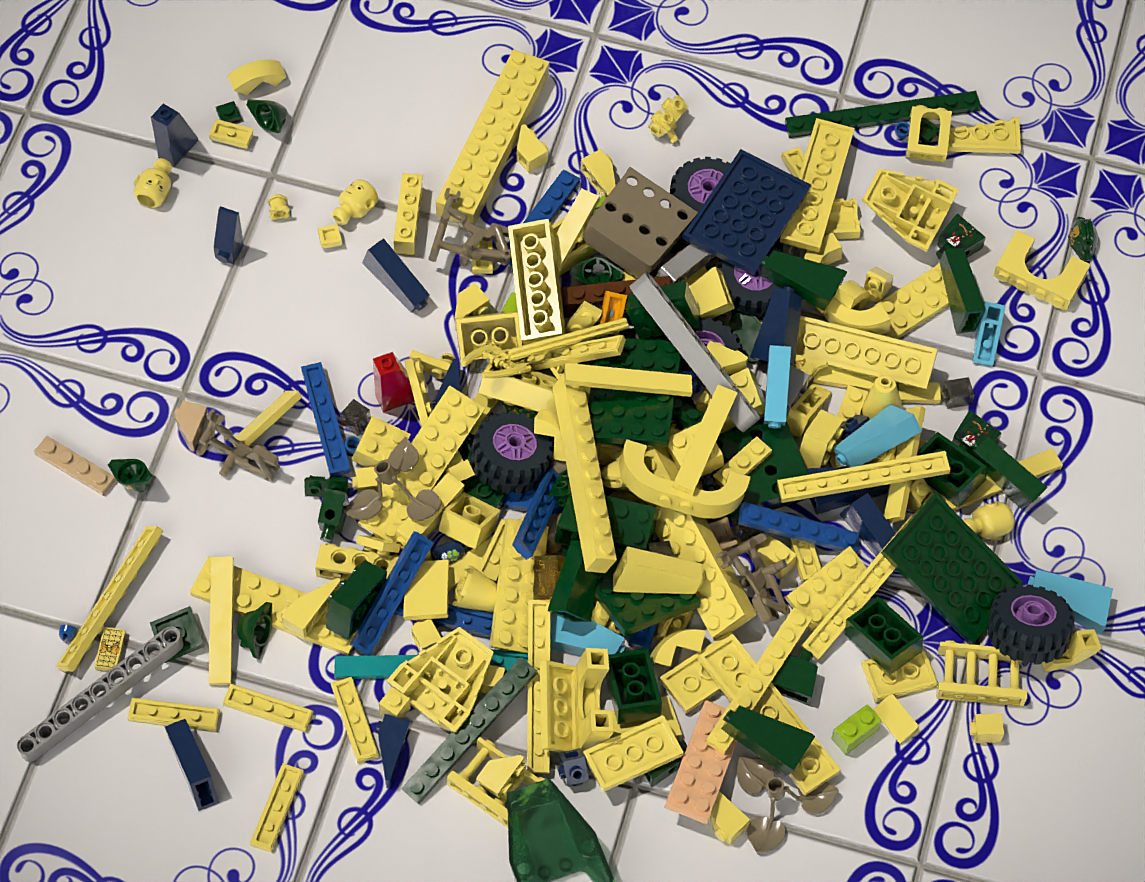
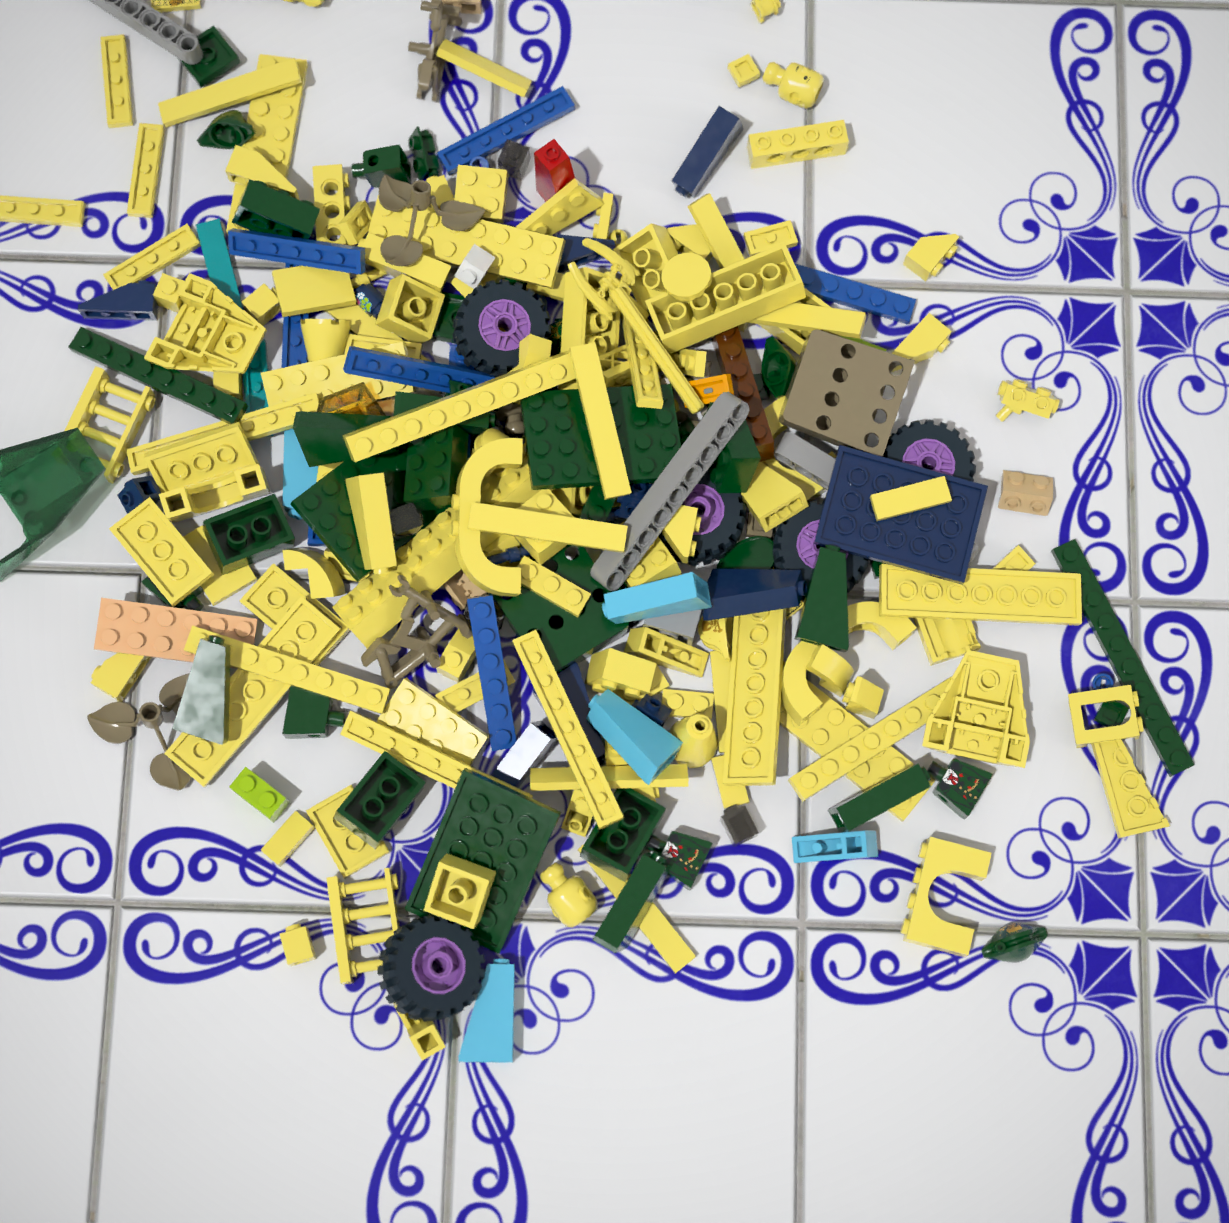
camera: 75 degrees right, 15 degrees up
(192, 764) = (56, 110): dark blue slope -> none
(453, 455) = (474, 266): none -> white brick
(470, 249) = (760, 218): dark tan piece -> none
(479, 282) = (715, 231): none -> light yellow tile
(494, 134) = (933, 209): light yellow brick -> none
(500, 773) = (104, 417): light yellow slope -> none
(513, 302) = (686, 276): none -> light yellow tile
(739, 198) = (910, 498): none -> light yellow tile
(740, 135) = (1026, 493): none -> tan bracket
(912, 283) = (866, 745): none -> light yellow plate
(976, 584) = (459, 891): none -> light yellow brick

